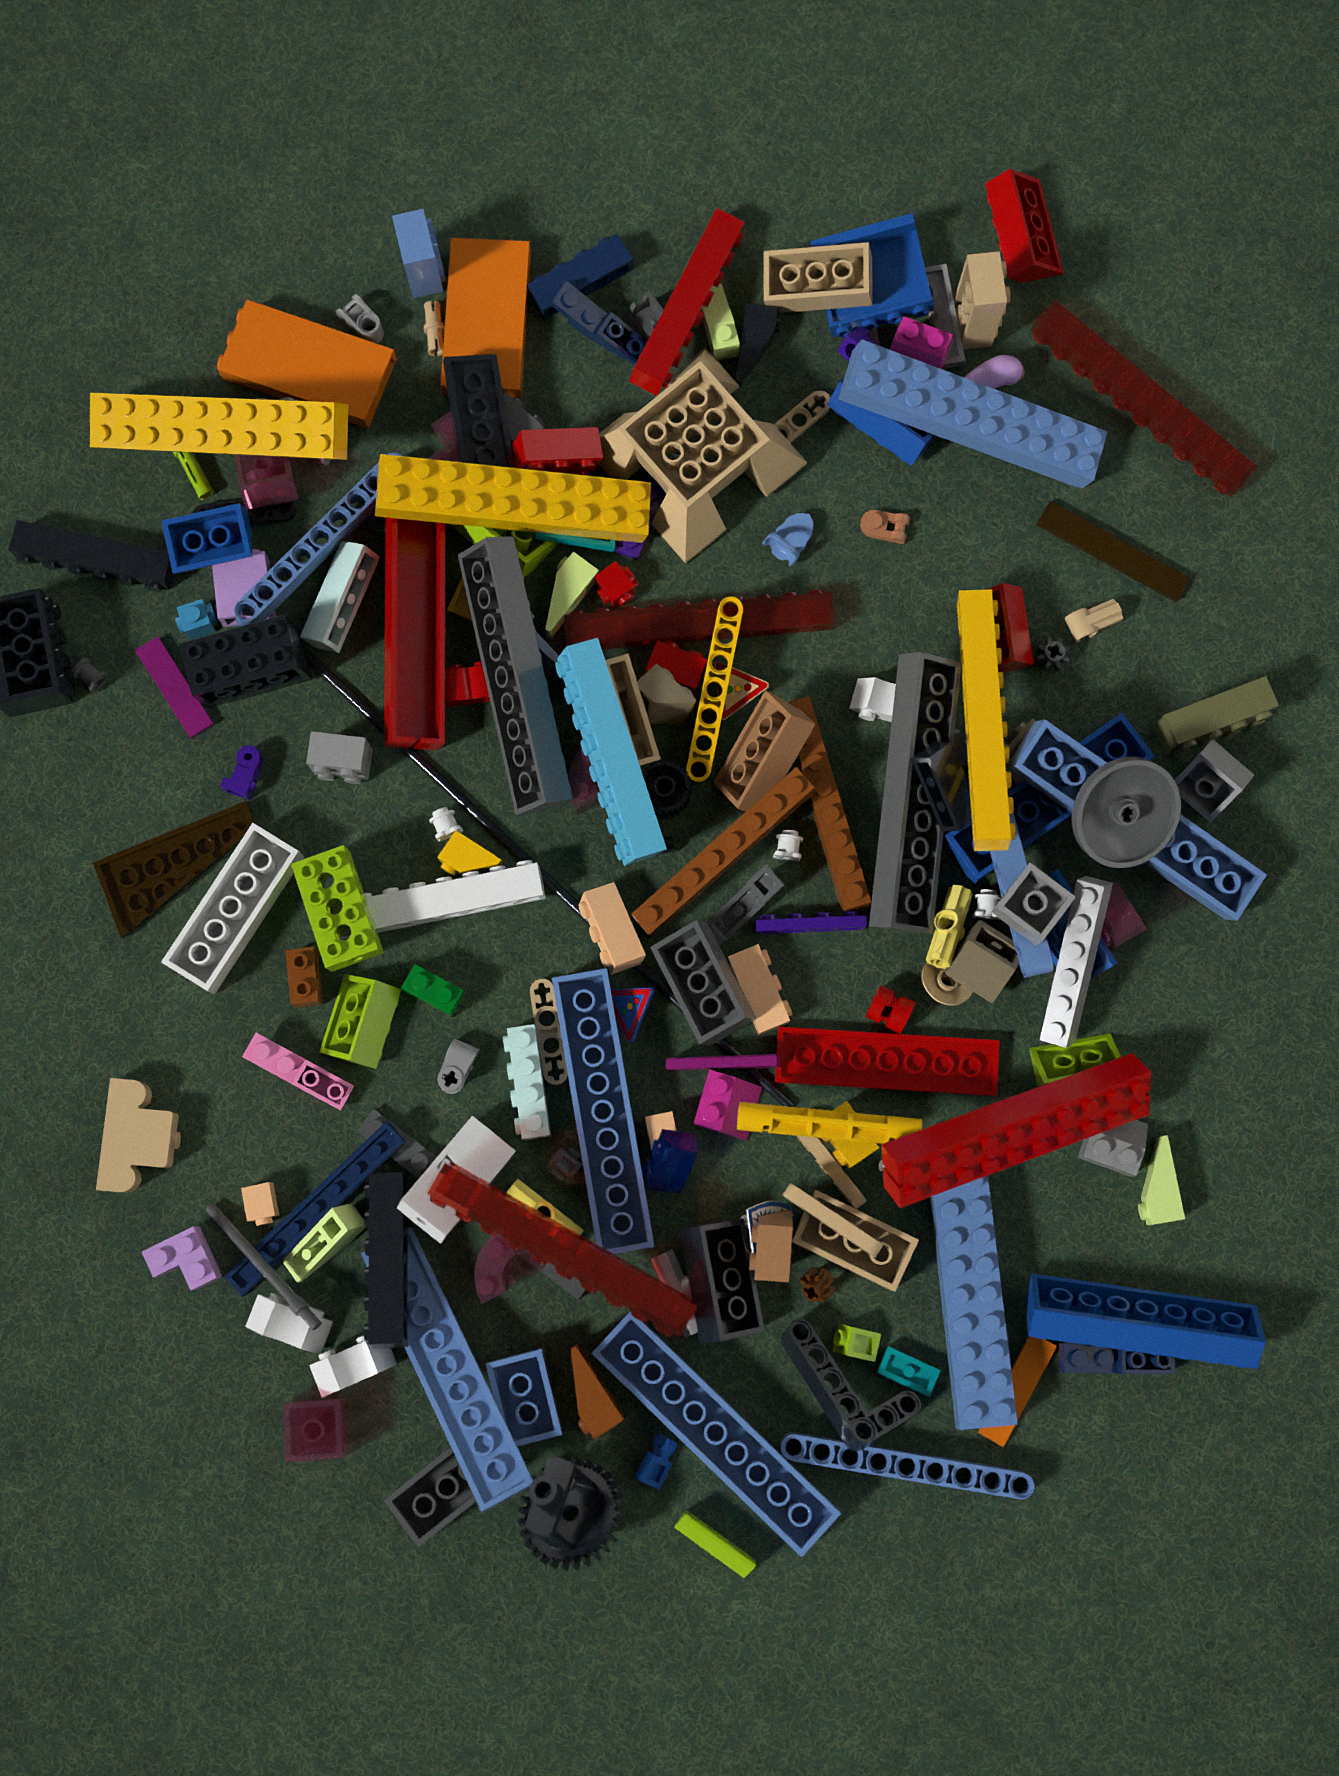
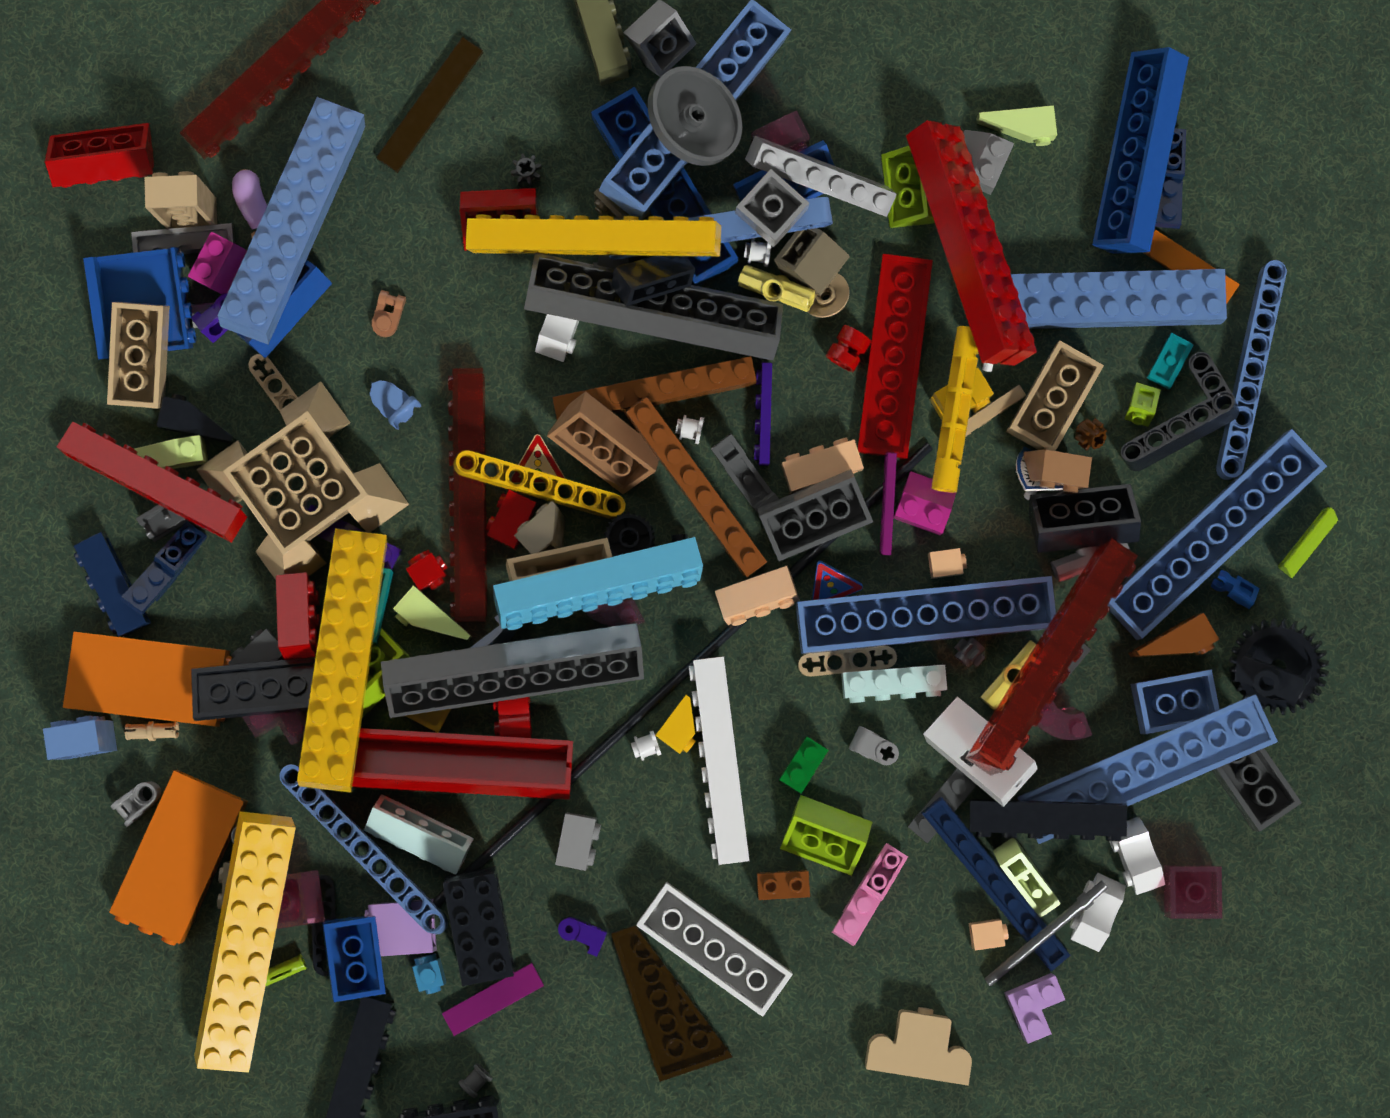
camera: 90 degrees left, 5 degrees up
(319, 904) = (720, 865): lime brick -> none
(670, 1161) = (975, 556): clear blue brick -> none
(832, 1220) = (1039, 414): tan beam -> none
(1090, 621) = (497, 134): tan piece -> none

